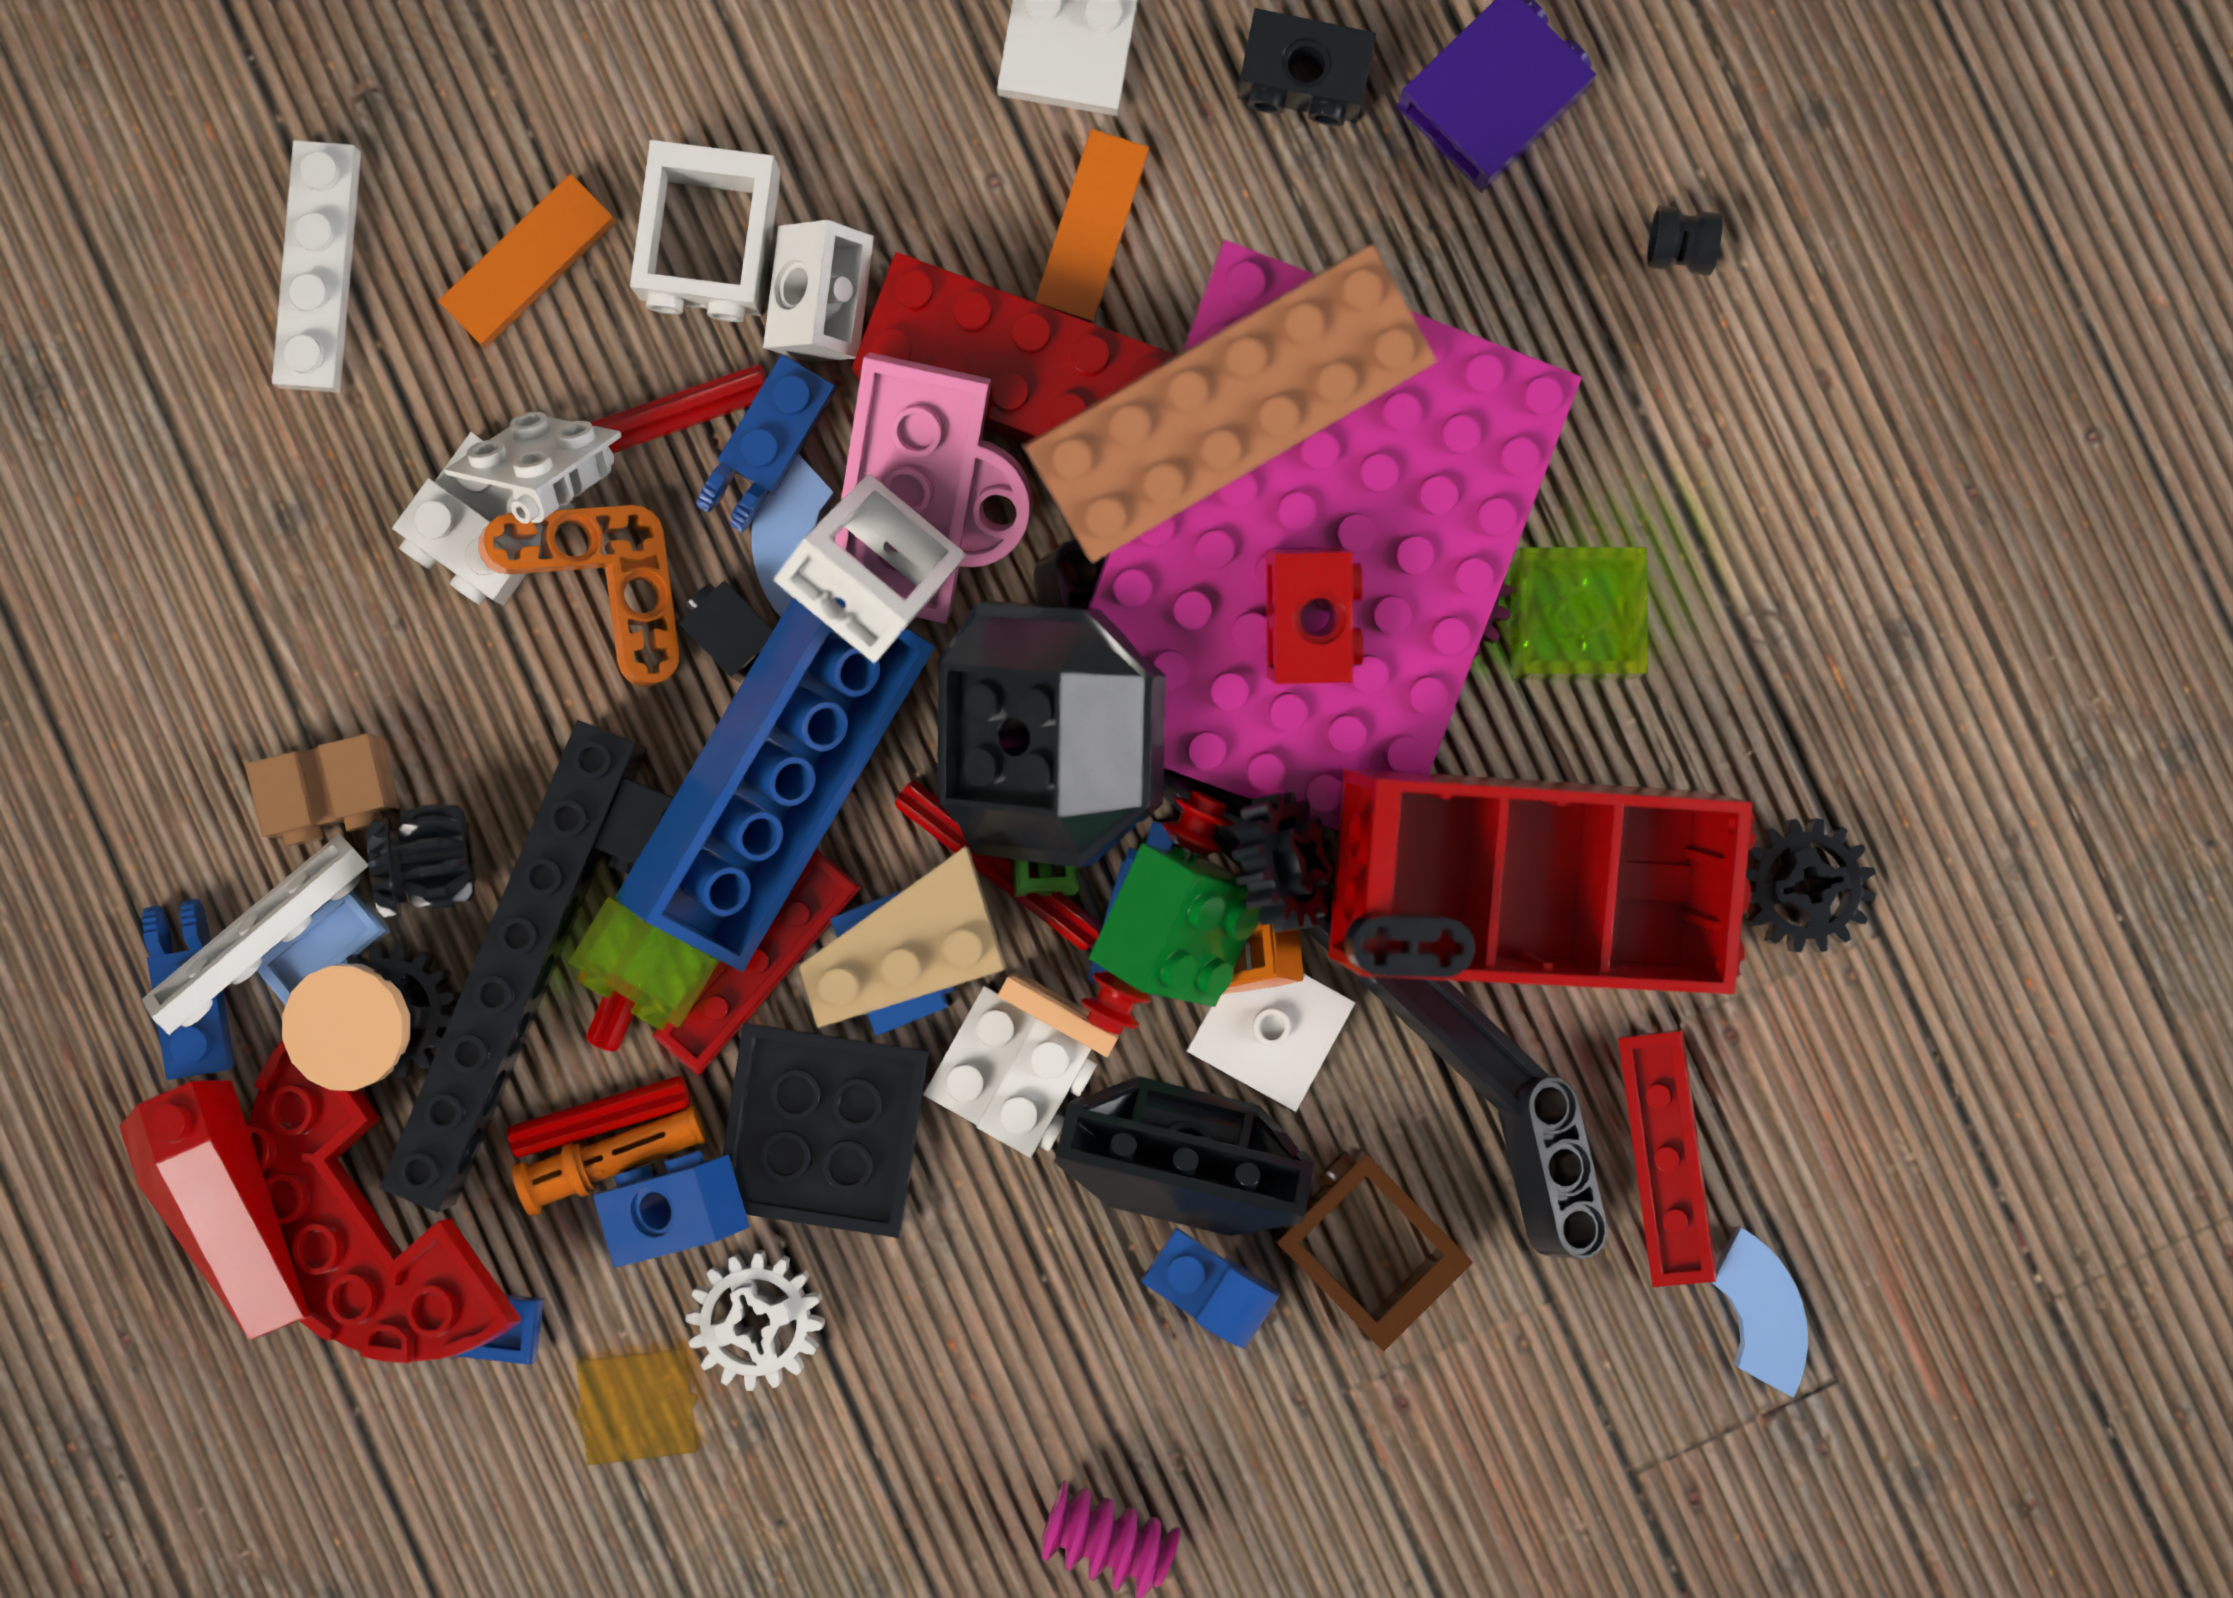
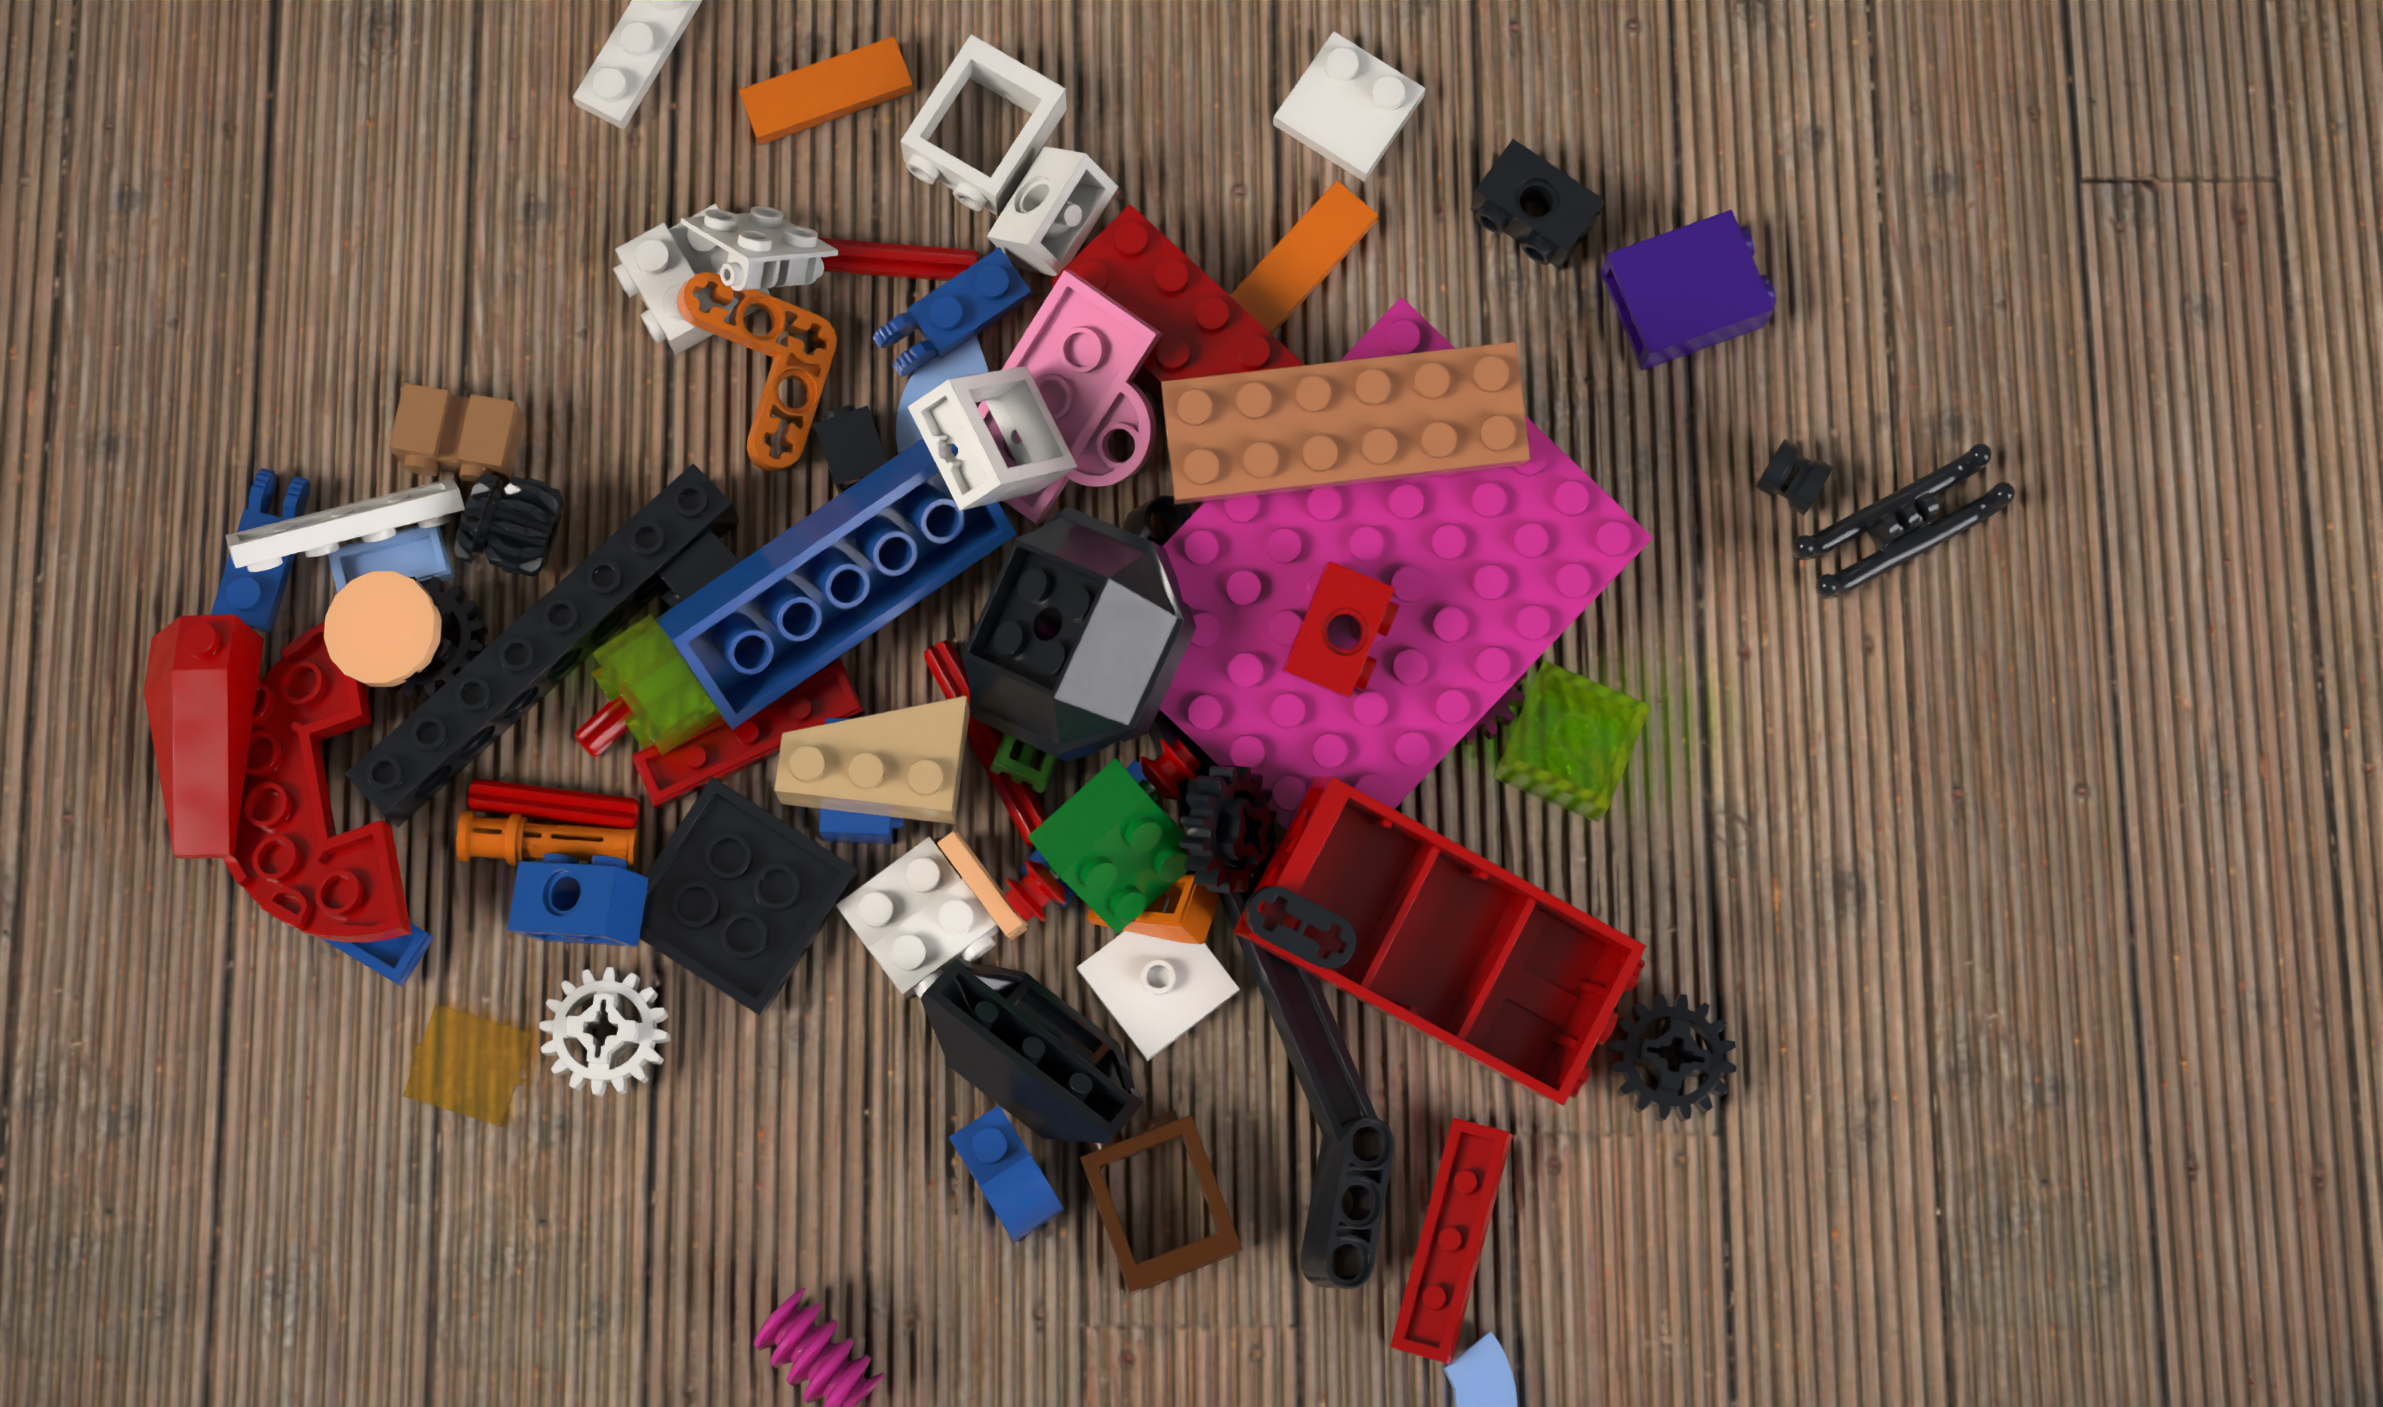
camera: 20 degrees right, 10 degrees down
(1812, 241) = (1902, 525): none -> black piece

